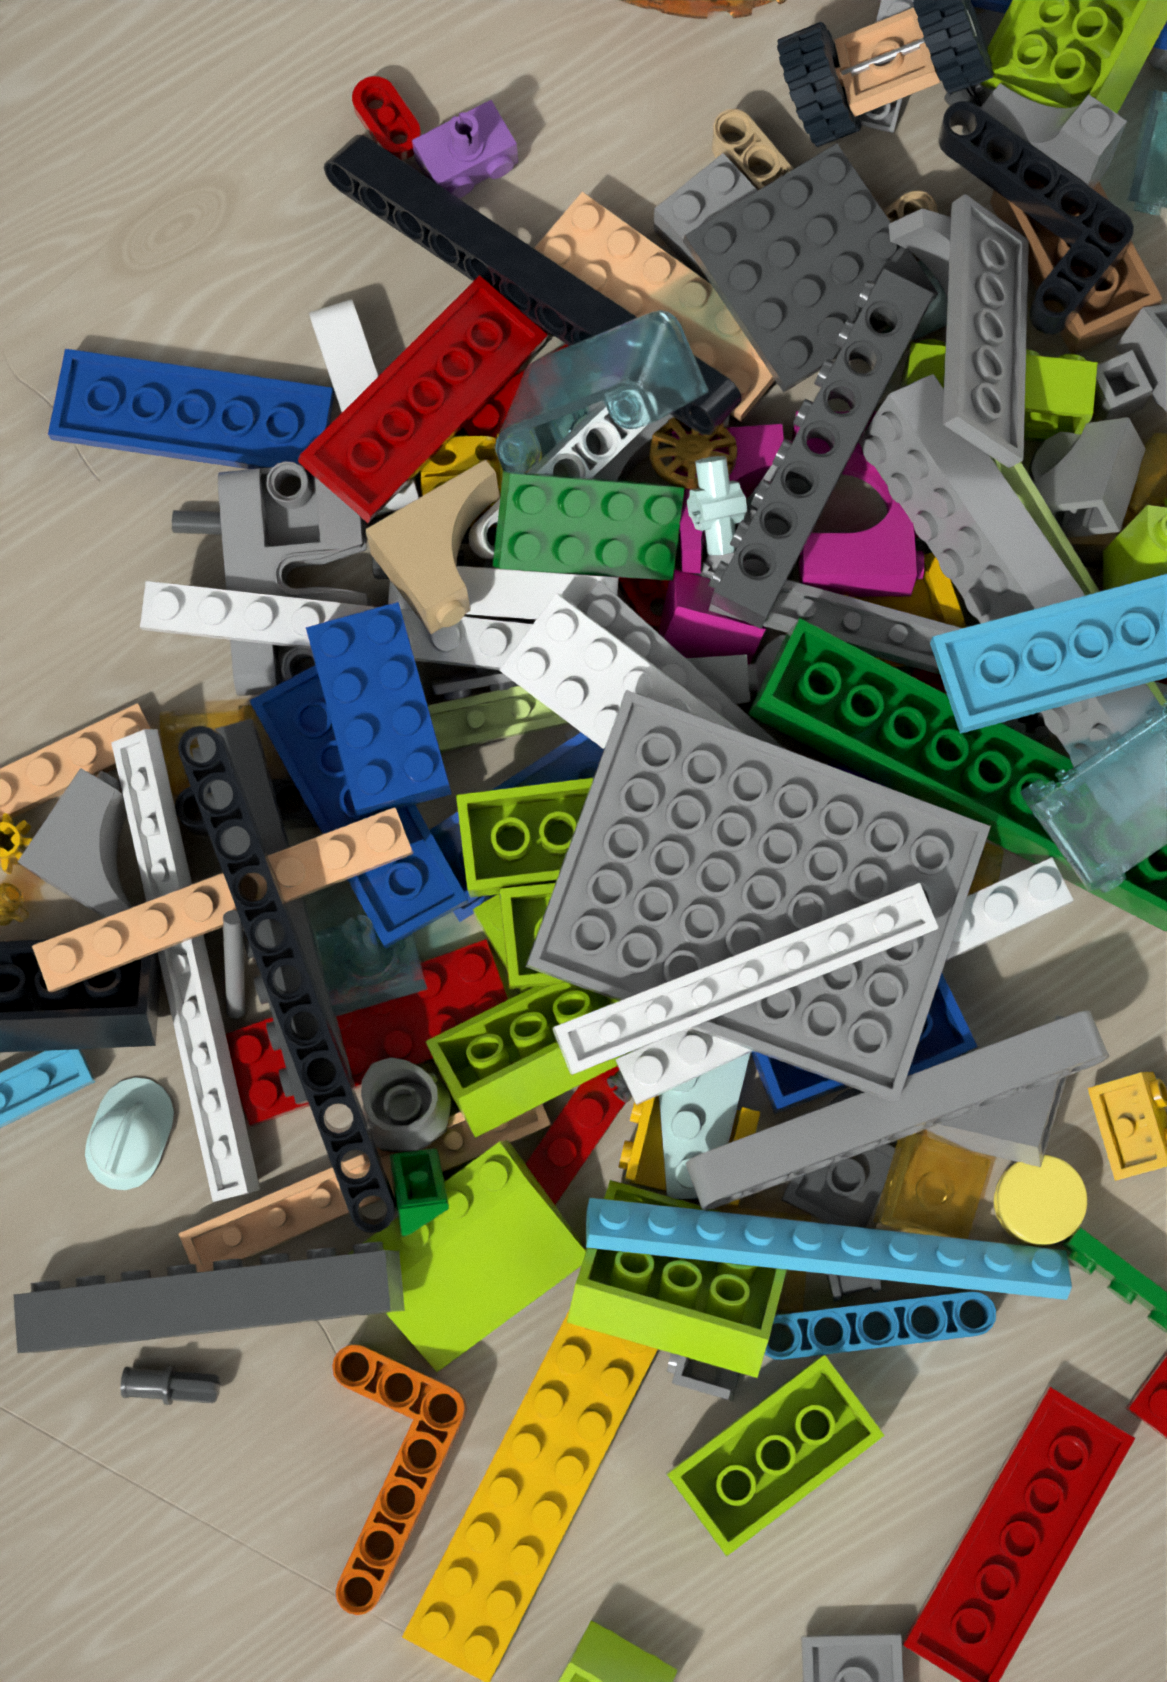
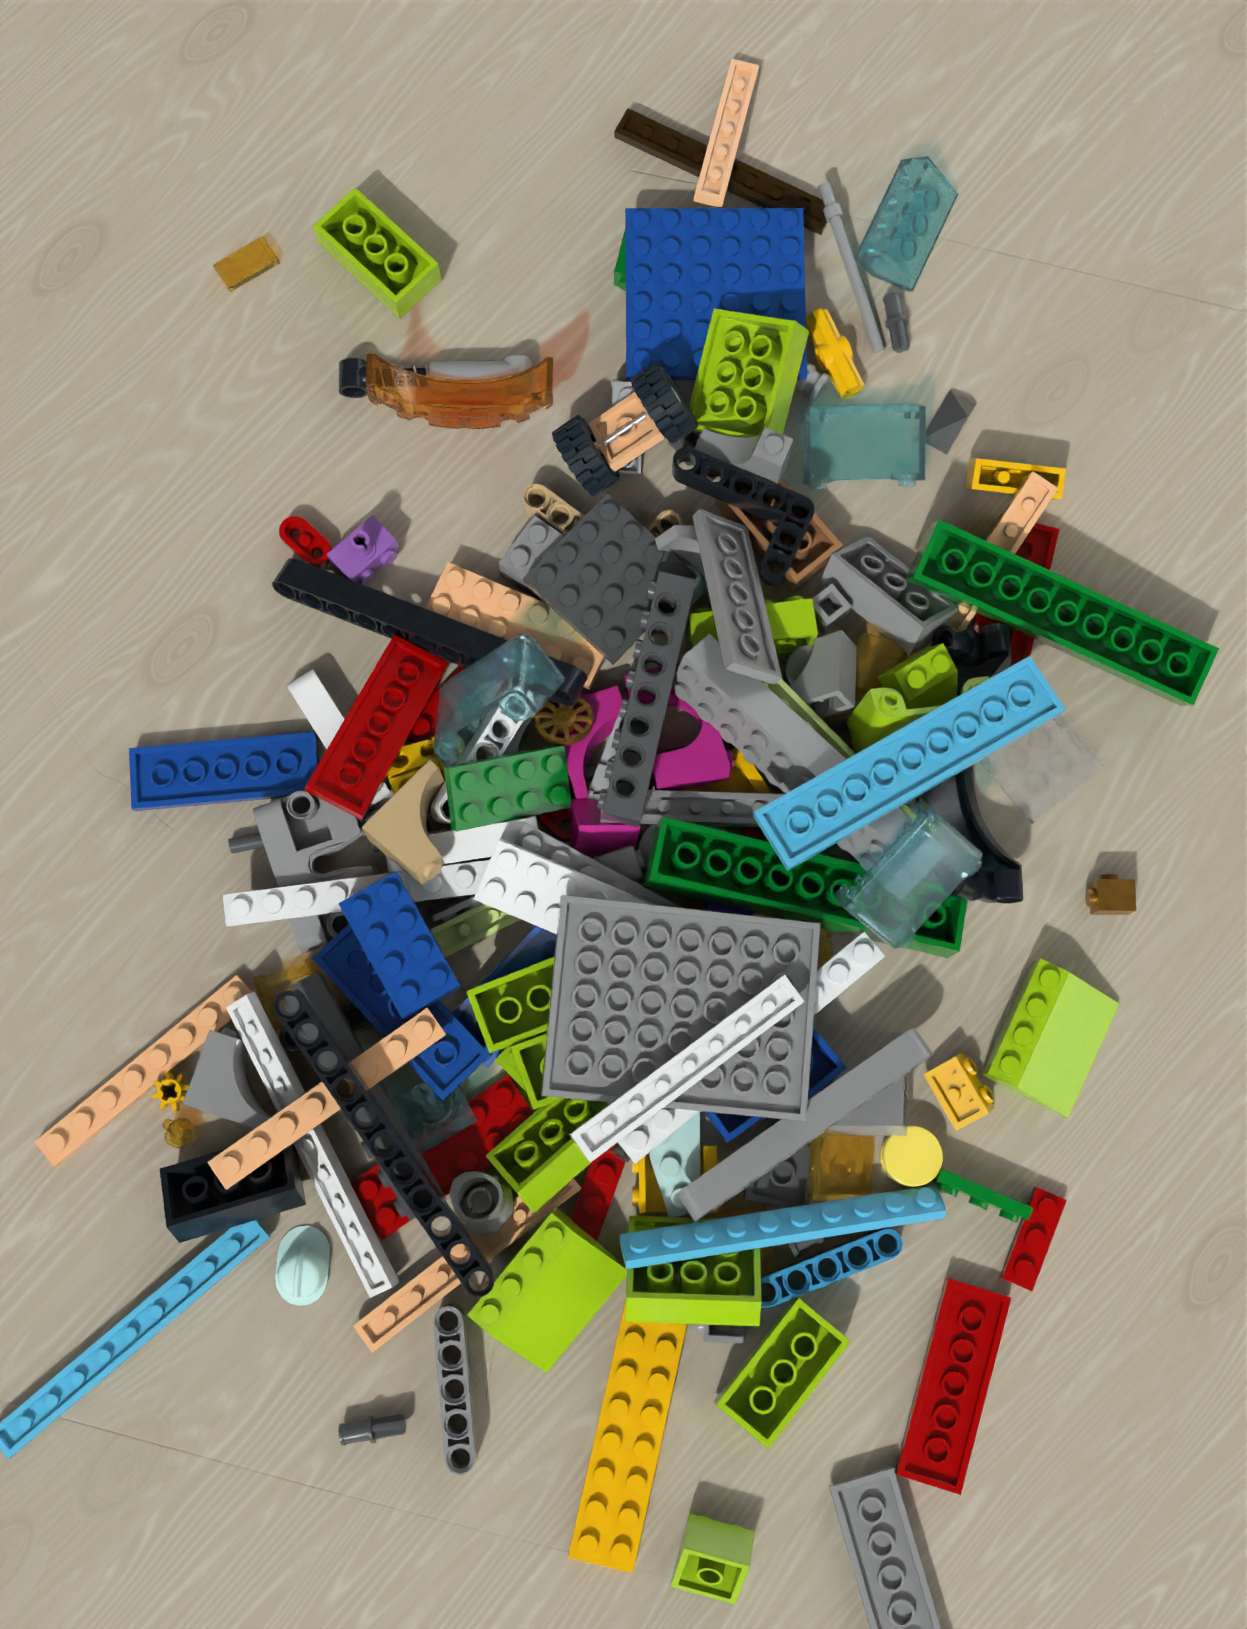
camera: 20 degrees left, 0 degrees up
(209, 1300) = (384, 1369): dark grey brick -> none
(234, 964) = (345, 1137): light grey bar -> none
(305, 1383) = (451, 1404): none -> light grey beam
(403, 1470) = (542, 1447): orange beam -> none
(418, 1188) = (505, 1257): green slope -> none
(716, 504) = (588, 752): light aqua axle -> none

